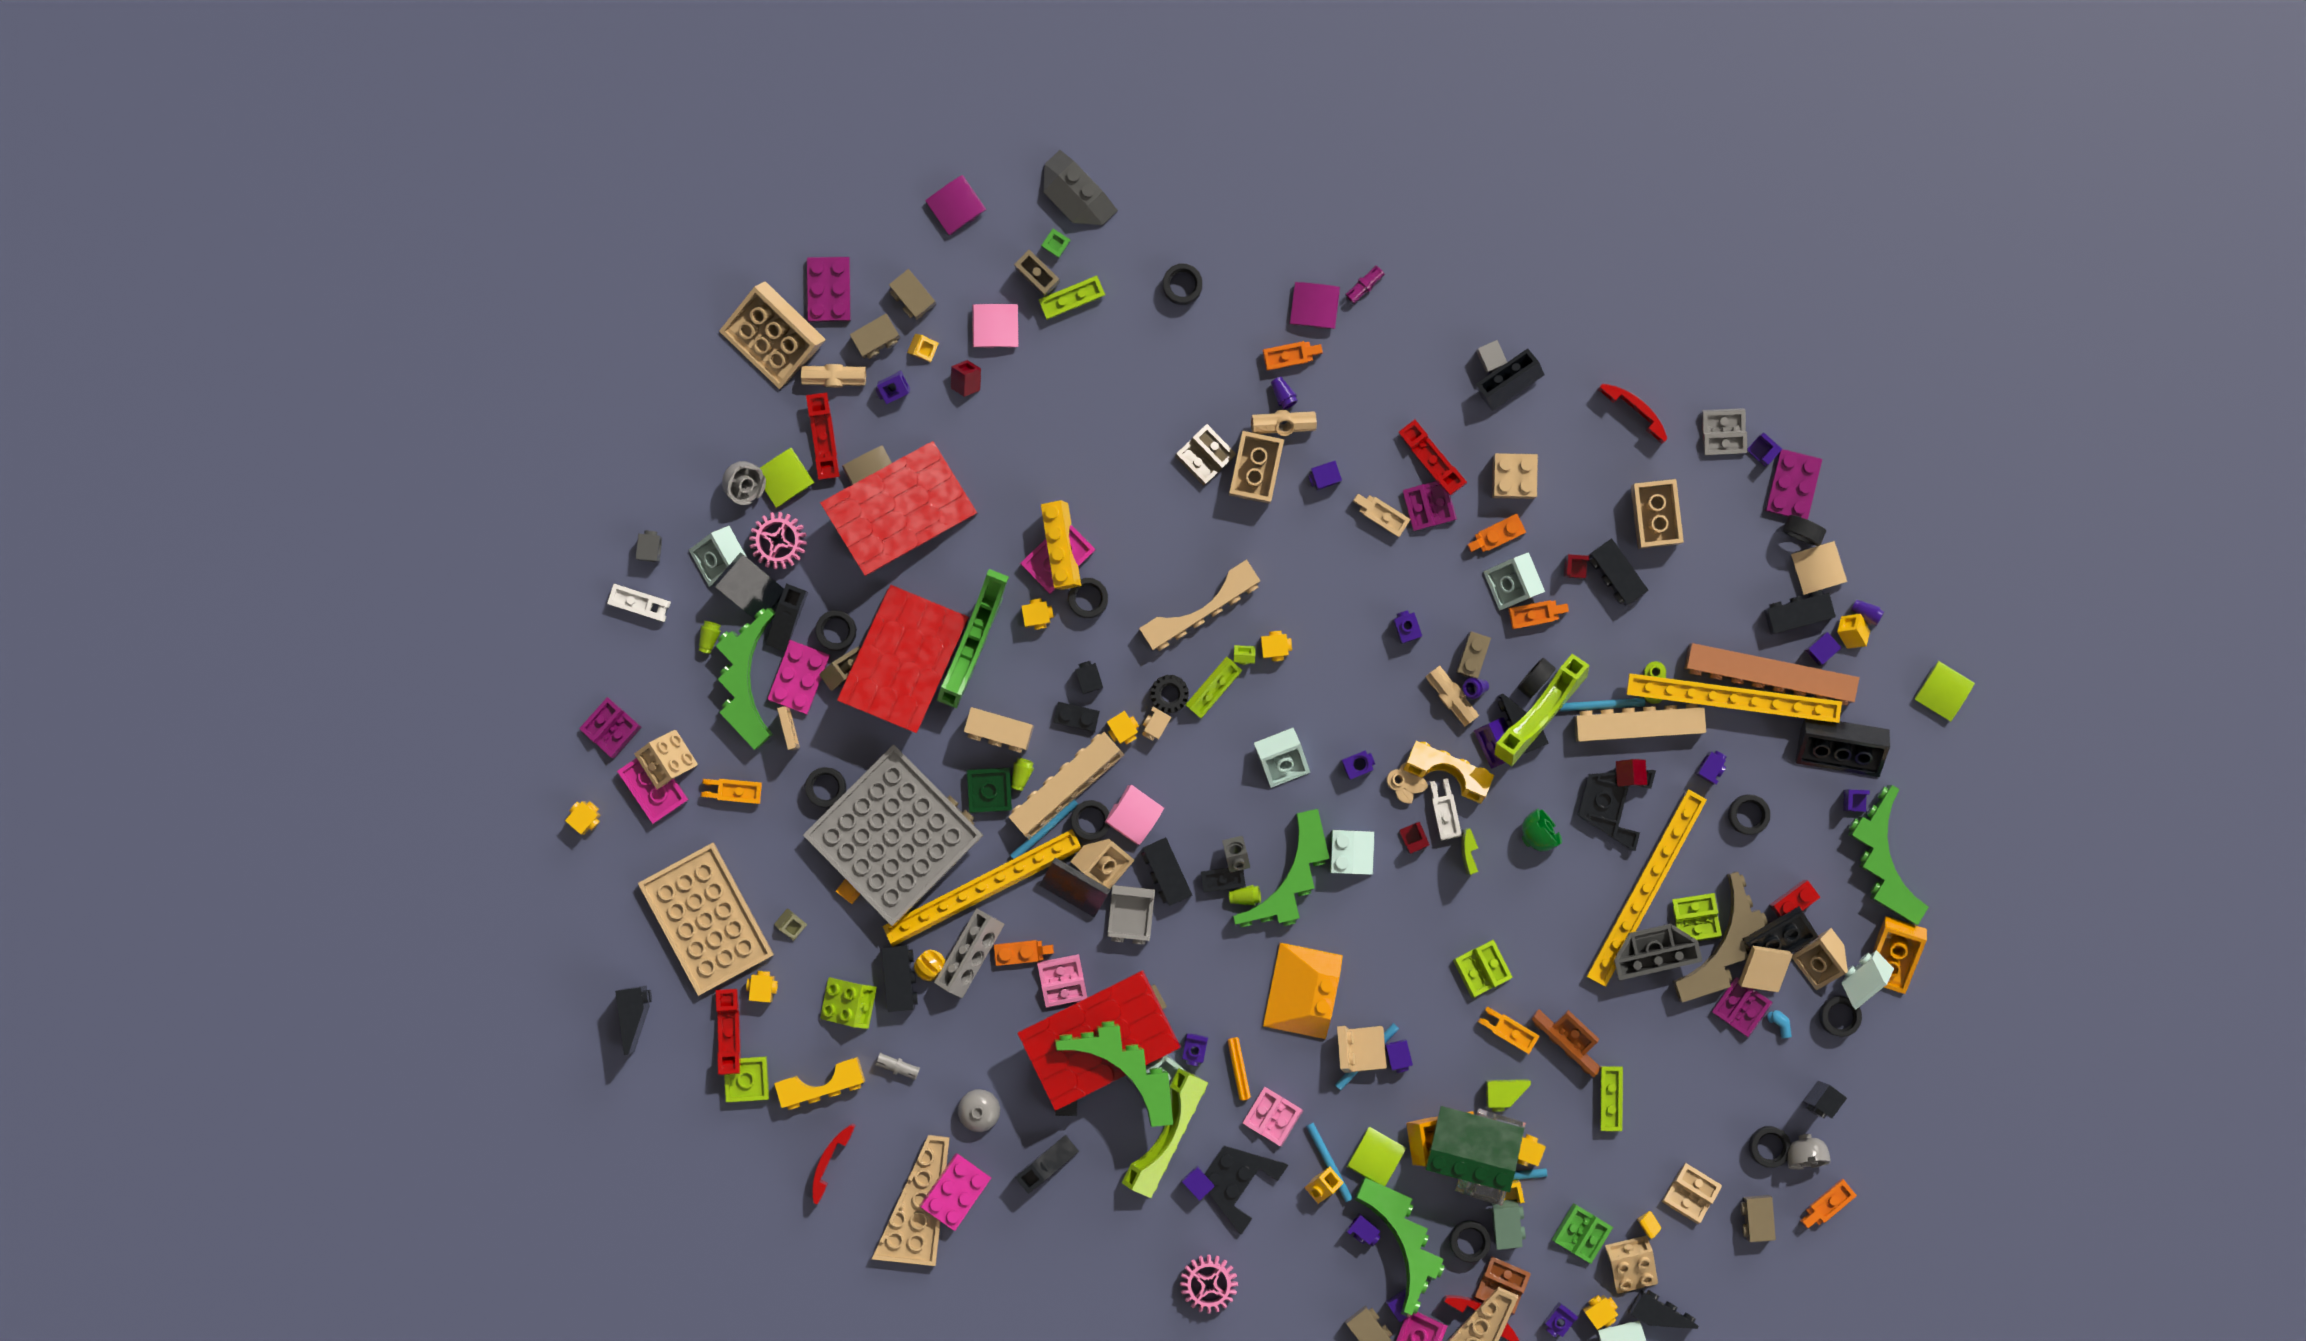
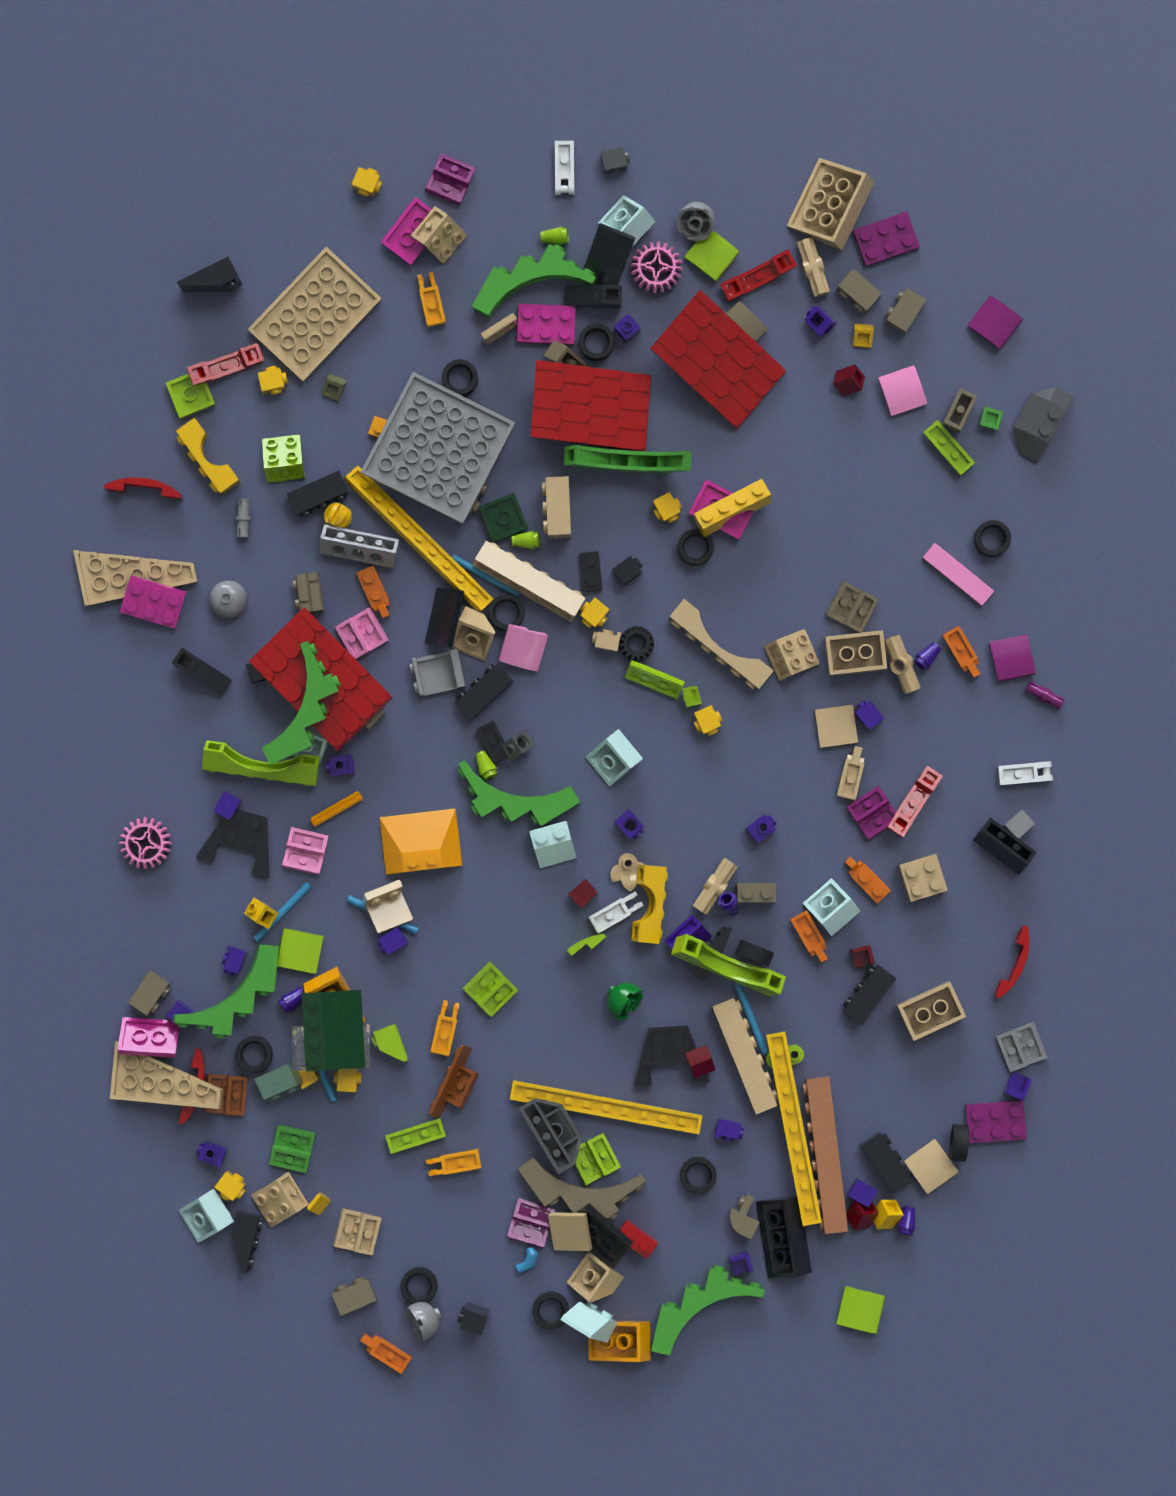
camera: 75 degrees right, 0 degrees up
(832, 593) = (627, 328): none -> dark purple brick
(1000, 1022) = (309, 592): none -> dark tan brick
(1208, 332) = (958, 574): none -> bright pink tile
(1235, 534) = (791, 654): none -> tan bracket
(1325, 513) = (836, 726): none -> tan tile
(1425, 1182) = (291, 1000): none -> dark purple cone
(1440, 333) = (1024, 773): none -> white plate
(1653, 1065) = (456, 1162): none -> light orange hinge
(1811, 786) = (740, 1220): none -> dark tan brick
(1847, 658) = (861, 1216): none -> dark red panel

